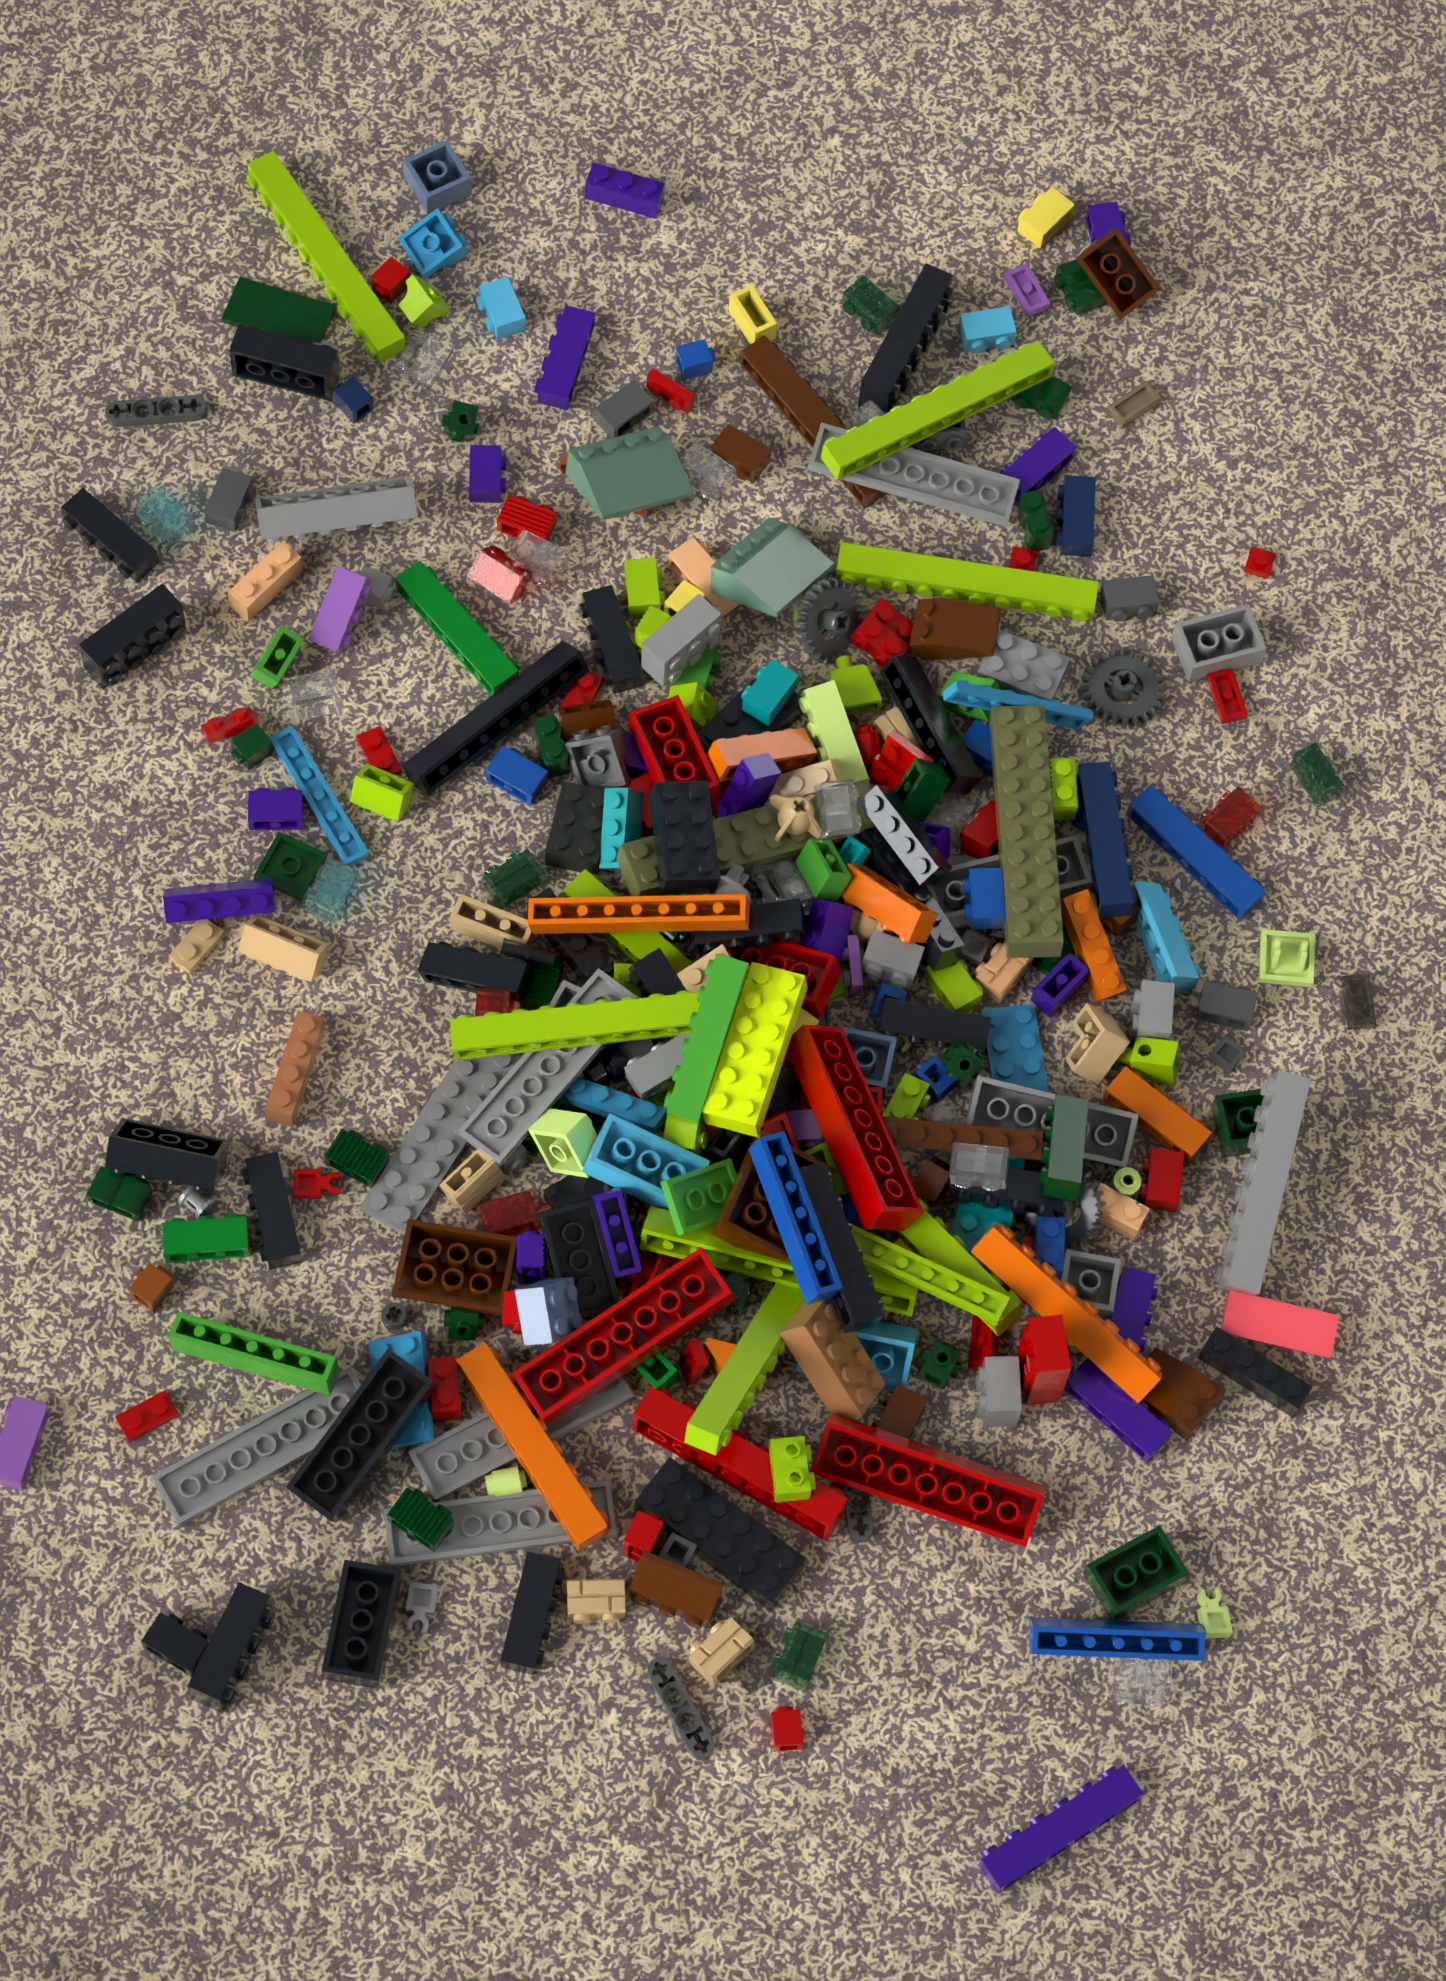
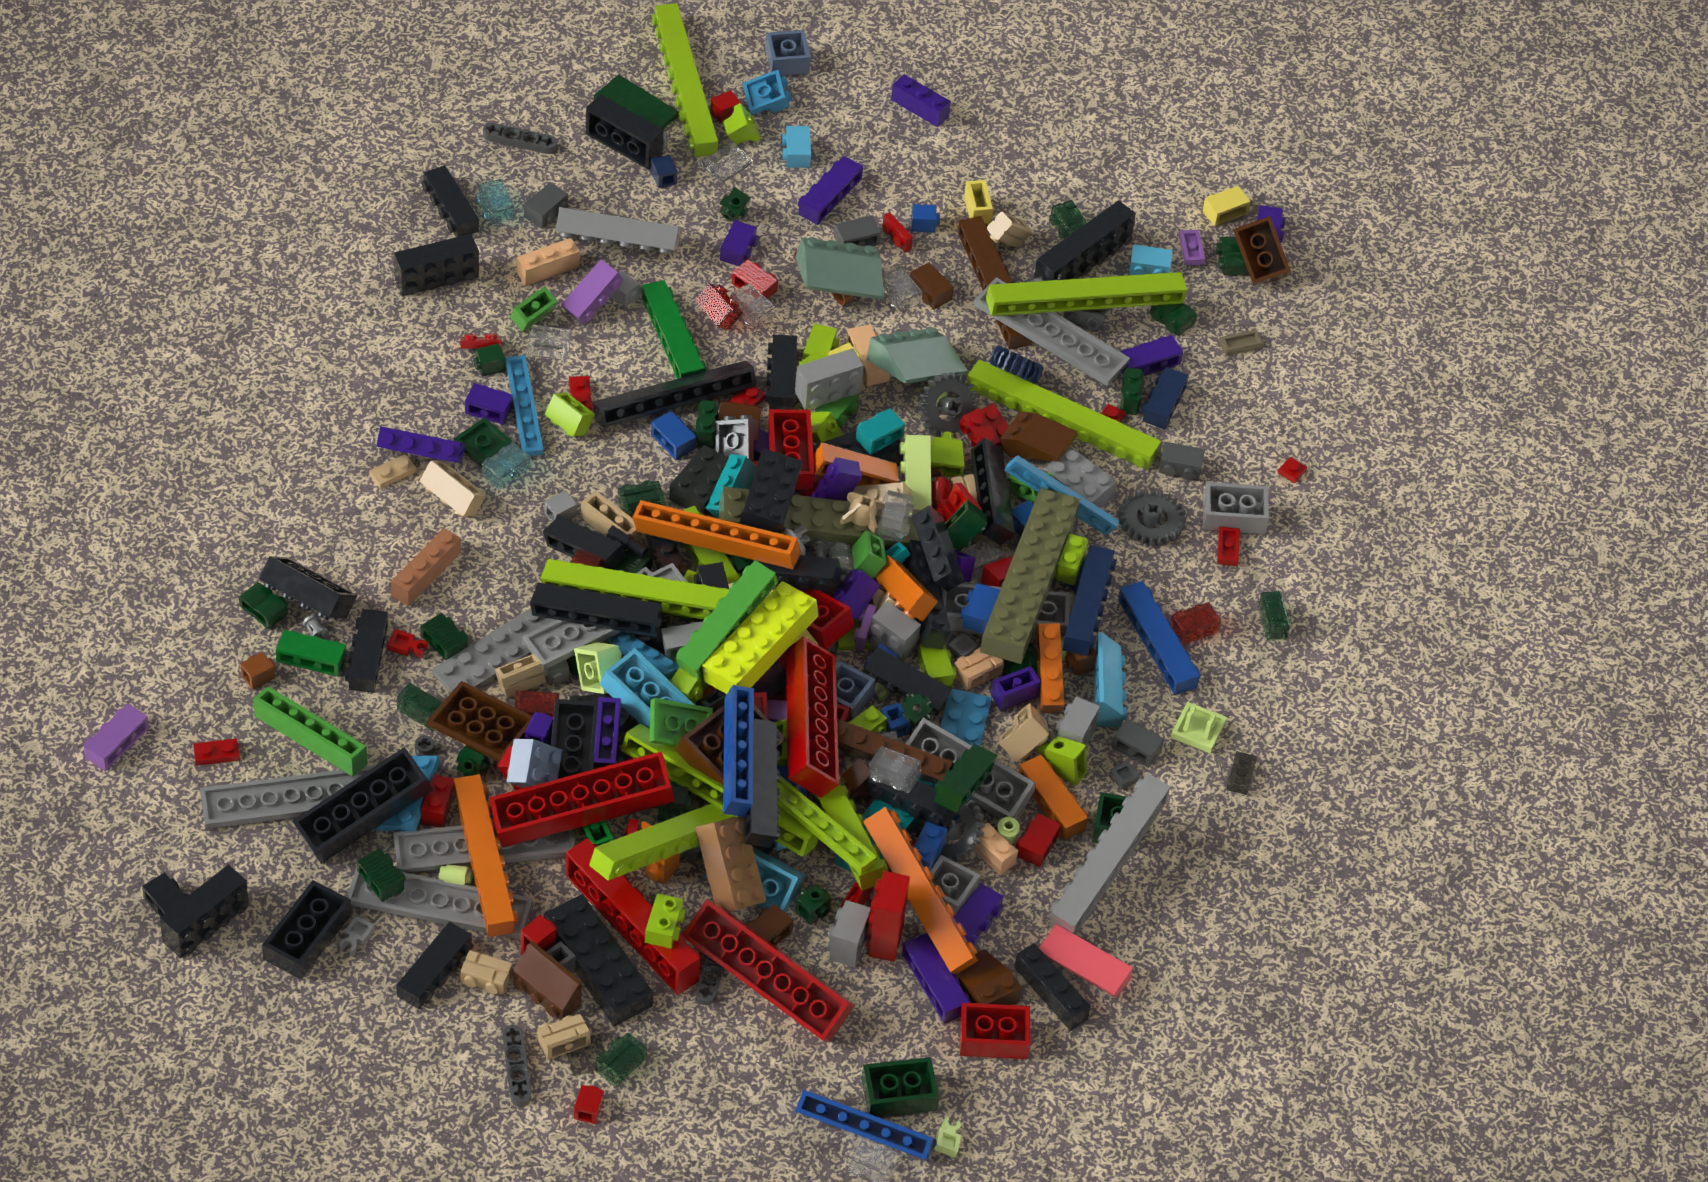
camera: 20 degrees right, 15 degrees down
(368, 1266) = (417, 704): none -> clear green brick
(423, 926) = (561, 505): none -> light grey brick
(536, 1068) = (596, 609): none -> black brick
(806, 345) = (1008, 230): none -> tan brick
(889, 534) = (1016, 364): none -> dark blue gear
(1214, 1457) = (994, 1031): none -> red brick

